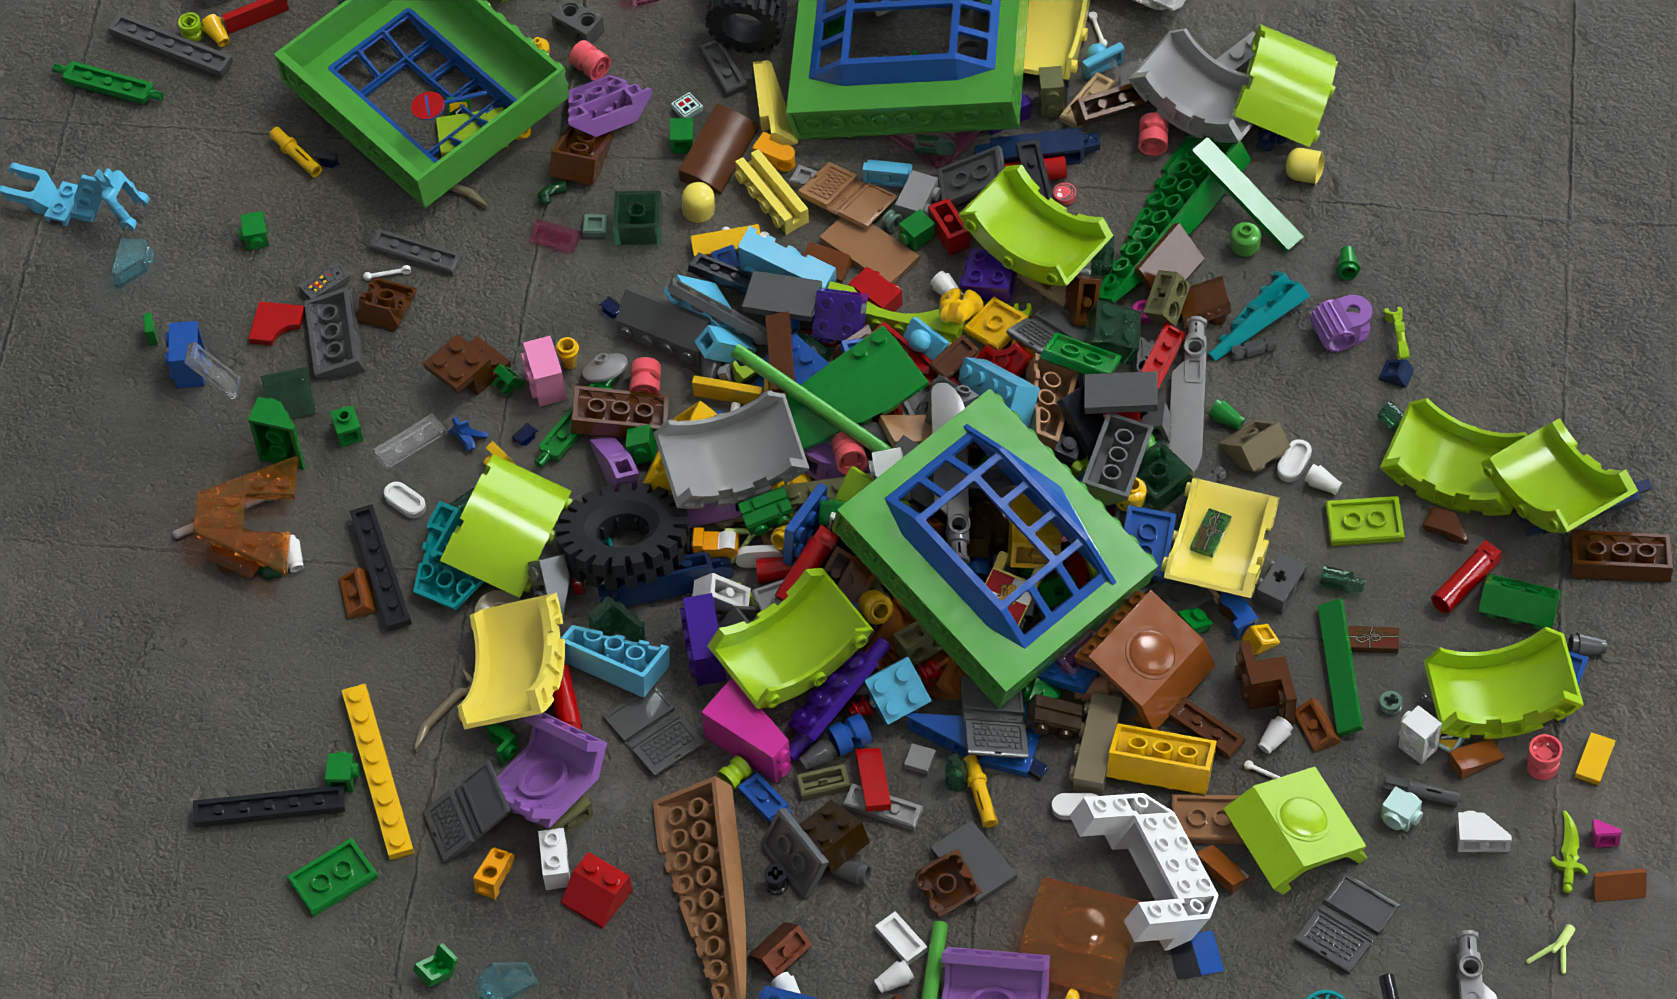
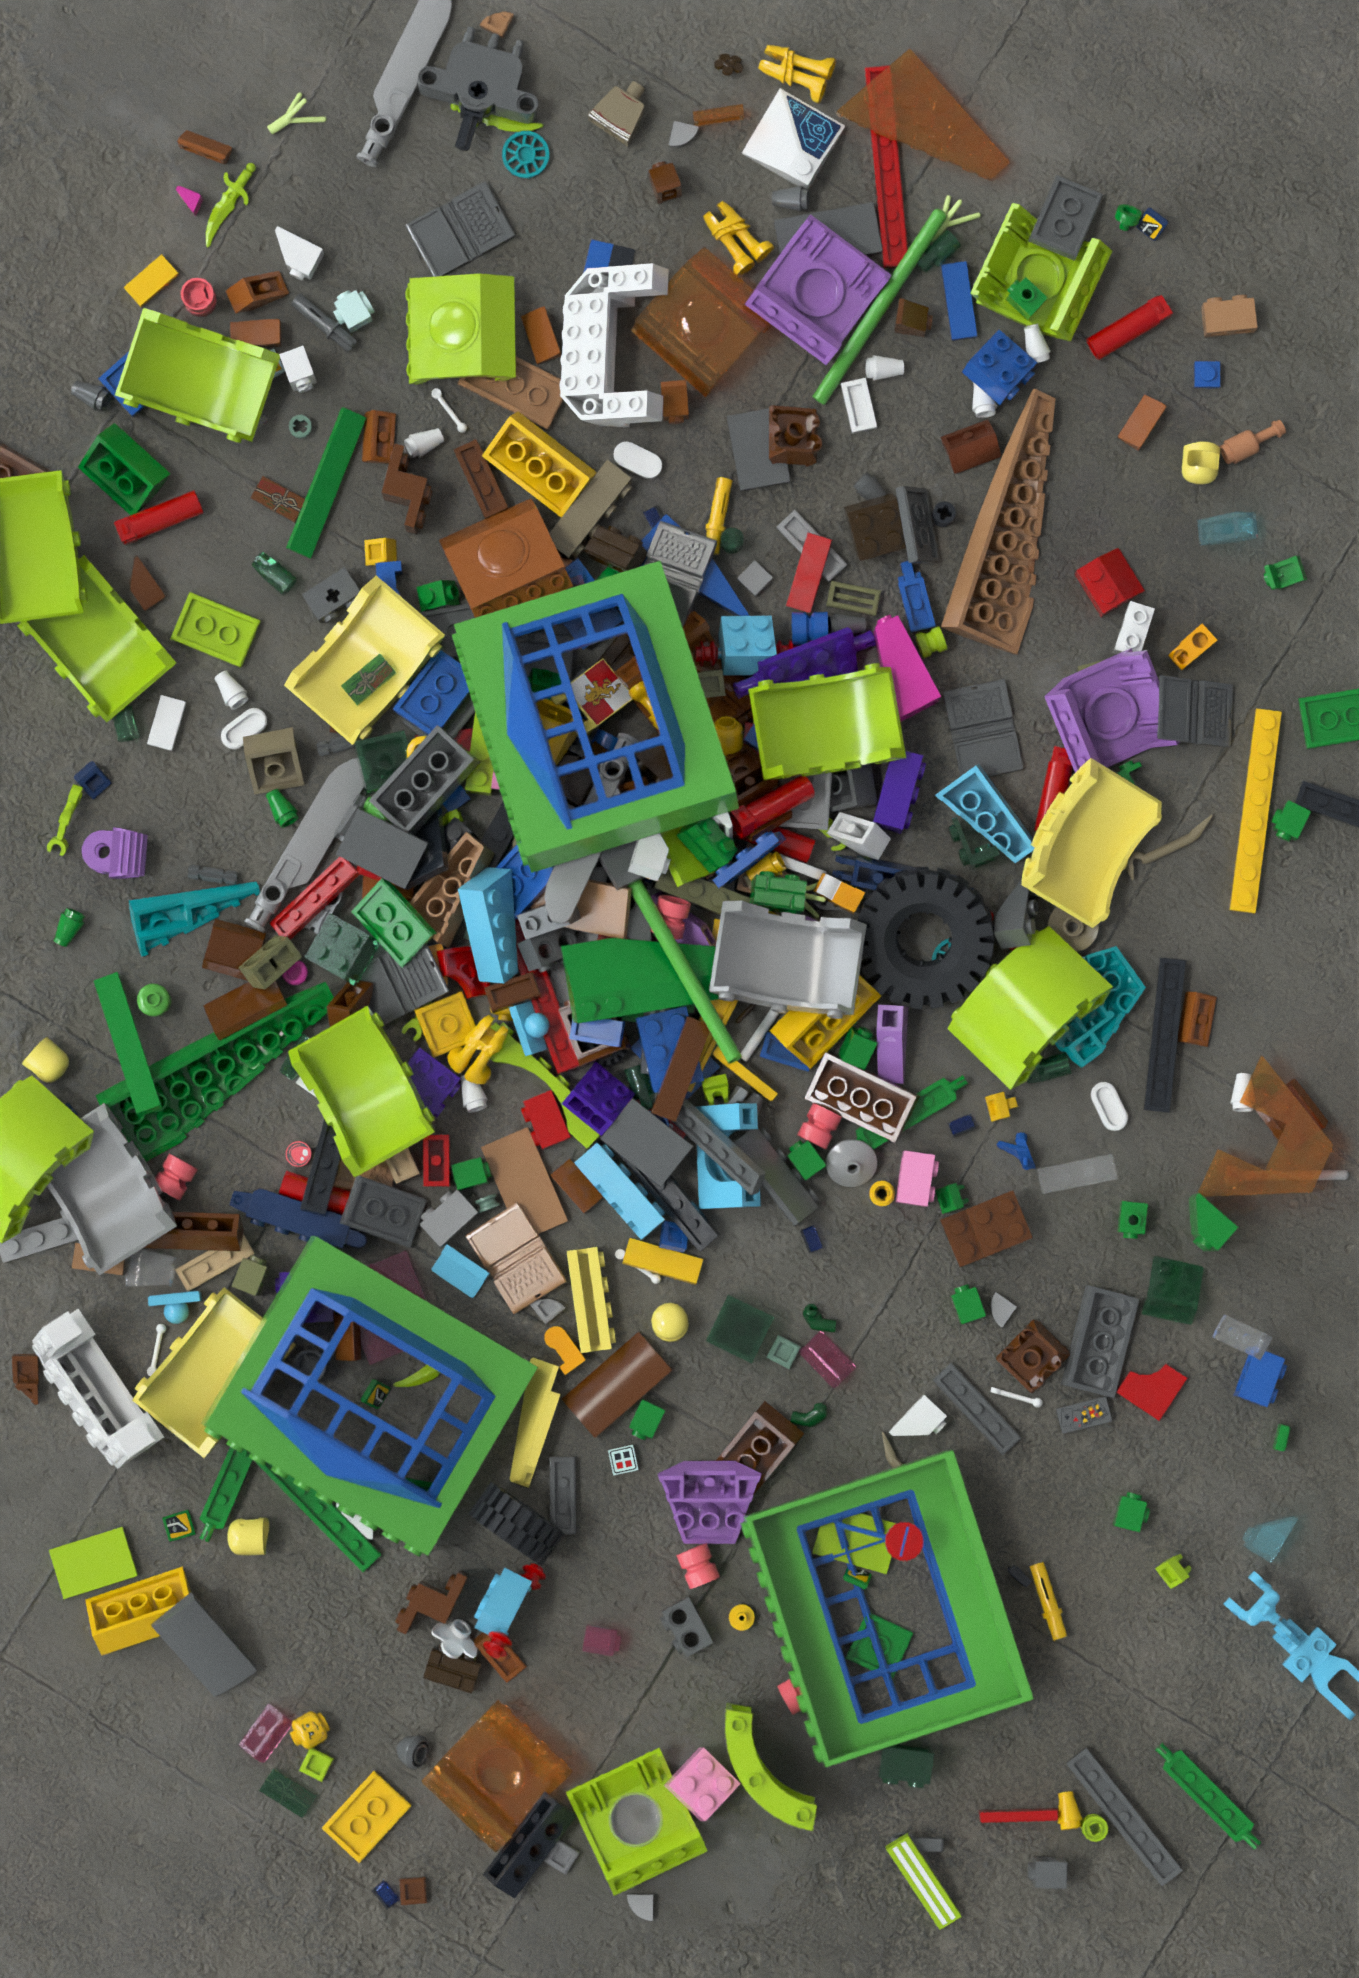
camera: 155 degrees left, 30 degrees up
(201, 208) = (1173, 1572): none -> lime tile
(410, 83) = (892, 1640): none -> green tile
(428, 324) = (1001, 1309): none -> light grey tile
(457, 312) = (967, 1304): none -> green brick
(459, 221) = (920, 1419): none -> white slope
(578, 255) = (816, 1321): none -> dark green arm
(643, 346) = (805, 1159): none -> green brick
(941, 145) = (401, 1270): clear green hinge -> none
(1071, 861) = (675, 401): none -> dark orange slope
(1361, 436) = (166, 723): none -> white tile
(1495, 787) = (256, 291): none -> dark orange slope

